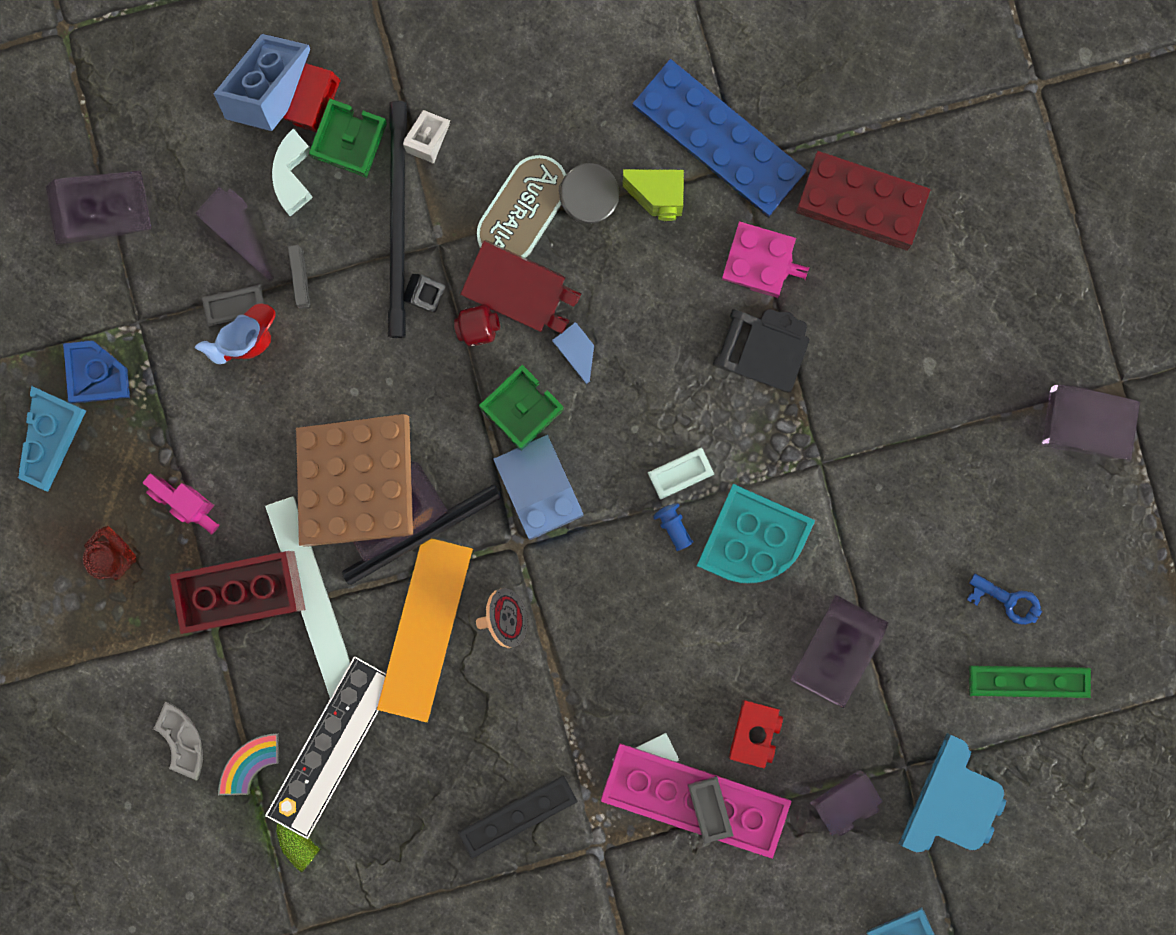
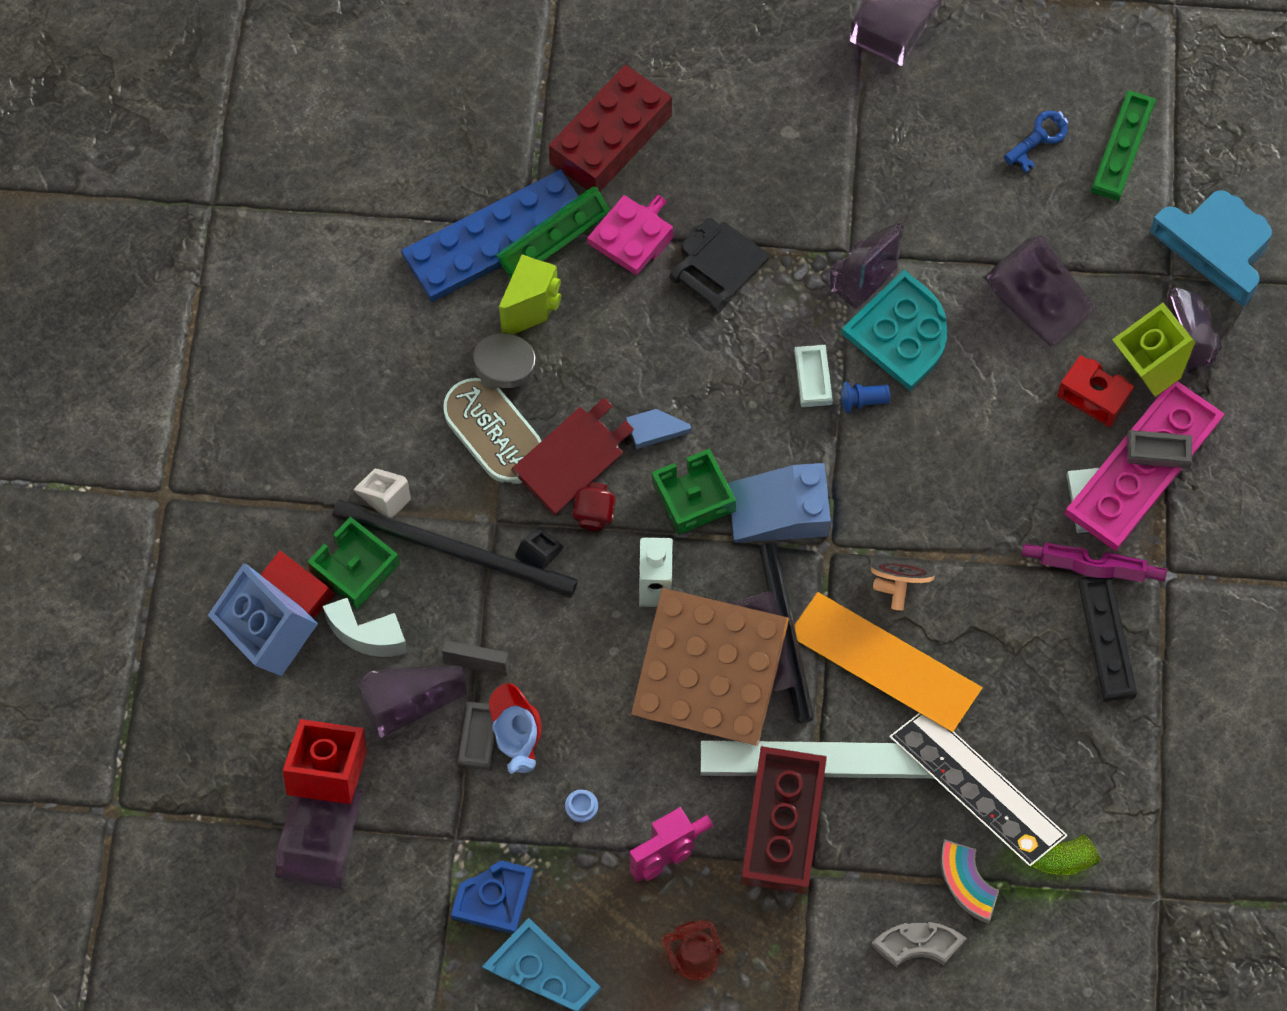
camera: 75 degrees left, 20 degrees down
(154, 187) = (325, 761): none -> red brick
(200, 416) = (581, 806): none -> light blue plate
(434, 401) = (654, 568): none -> light aqua torso
(584, 800) = (1108, 566): none -> magenta piece
(735, 189) = (556, 230): none -> green tile
(801, 483) = (867, 266): none -> clear purple slope
(805, 776) = (1156, 348): none -> lime slope

